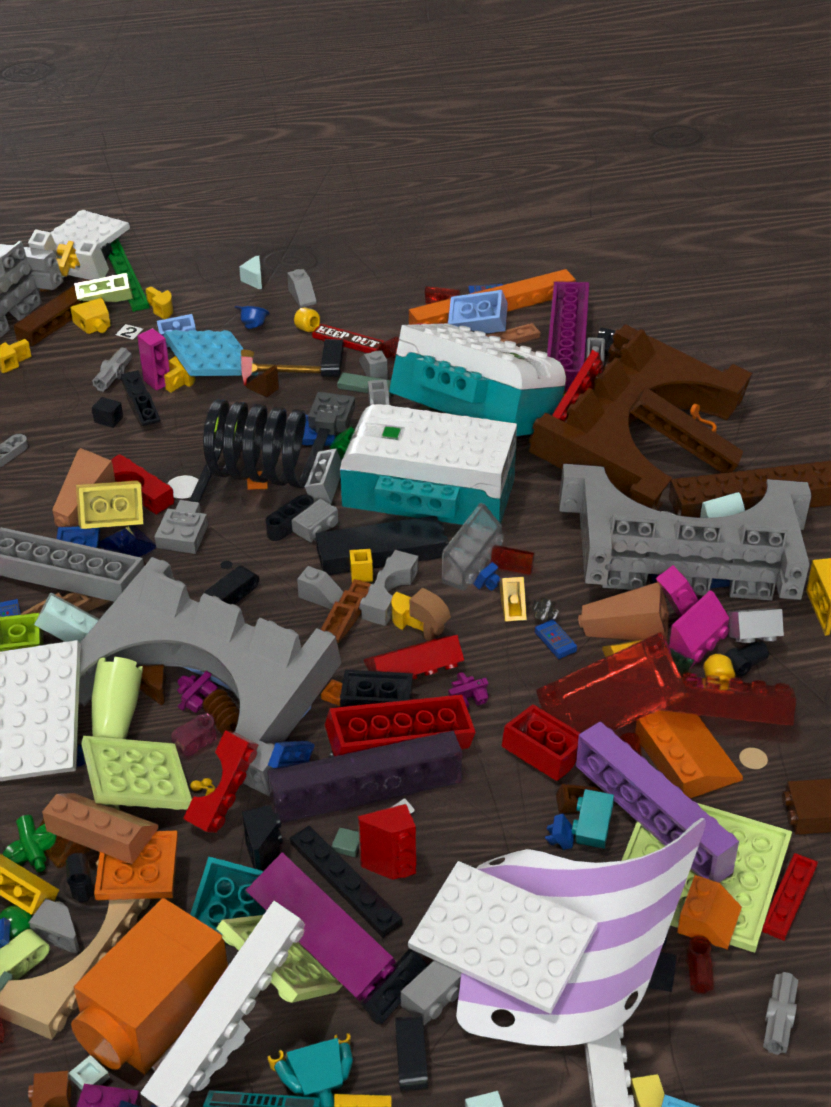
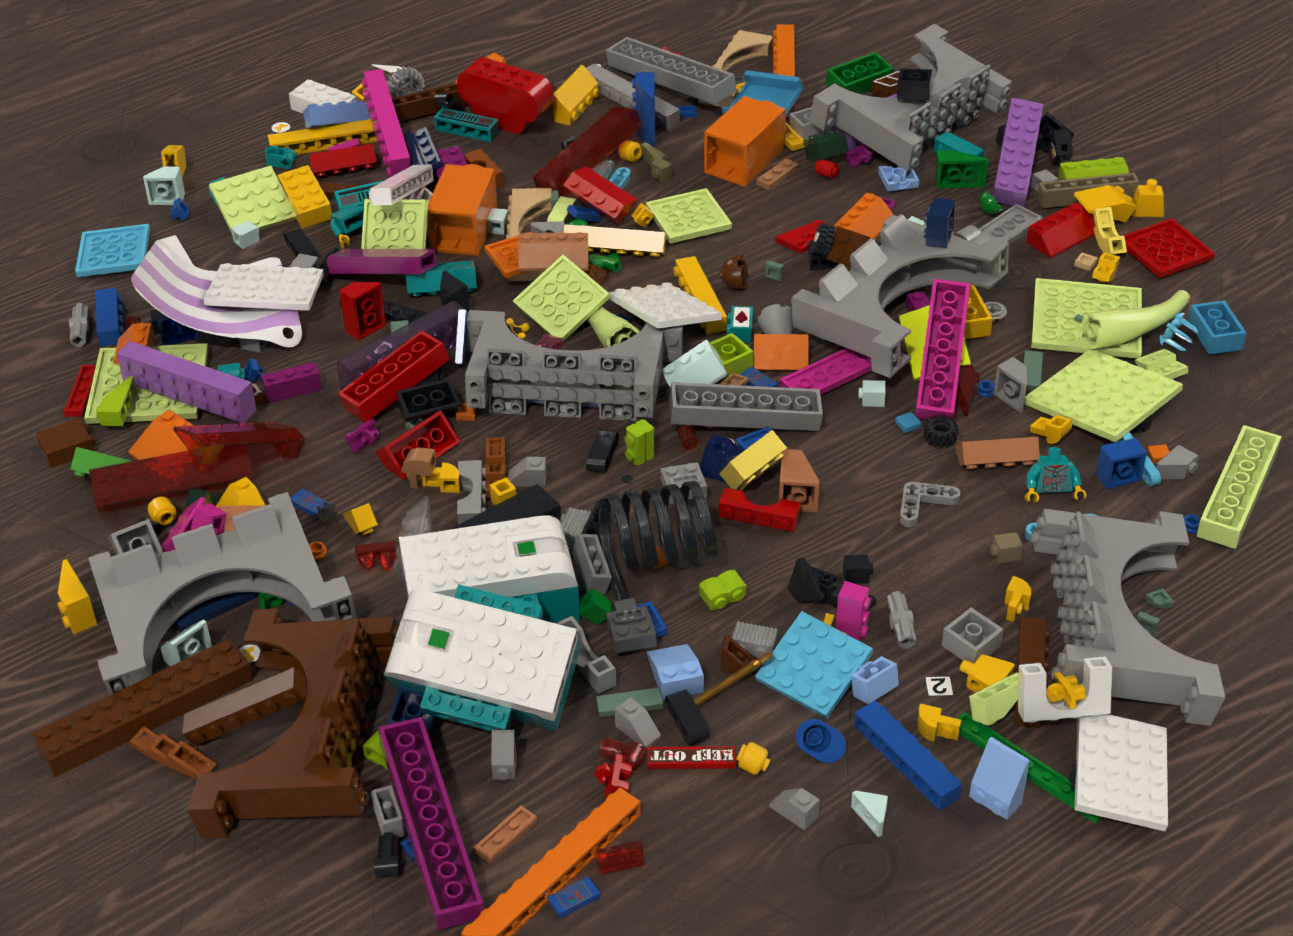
camera: 155 degrees right, 0 degrees up
(77, 335) = (972, 636): none -> light grey brick
(160, 251) = (1000, 779): none -> light blue slope
(163, 405) = (804, 582): none -> black slope
(183, 486) = (726, 533): white sticker -> none
(193, 567) = (639, 442): none -> lime brick
(198, 292) = (908, 755): none -> blue brick
(235, 756) = (495, 302): red arch -> none
(238, 388) = (754, 638): none -> light grey brick
(311, 380) = (676, 670): none -> light blue slope
(479, 311) = (550, 820): light blue slope -> none
(488, 577) = (391, 528): blue tile -> none
(520, 792) = (291, 382): none -> magenta brick
(542, 741) = (286, 409): red slope -> none
(569, 584) = (318, 550): none -> orange plate
(582, 381) = (367, 685): red plate -> none
(735, 1011) = (109, 316): none -> blue brick
(751, 814) = (116, 404): none -> lime slope
(752, 451) = (172, 754): none -> dark orange slope
(777, 740) = (87, 459): none -> bright green slope

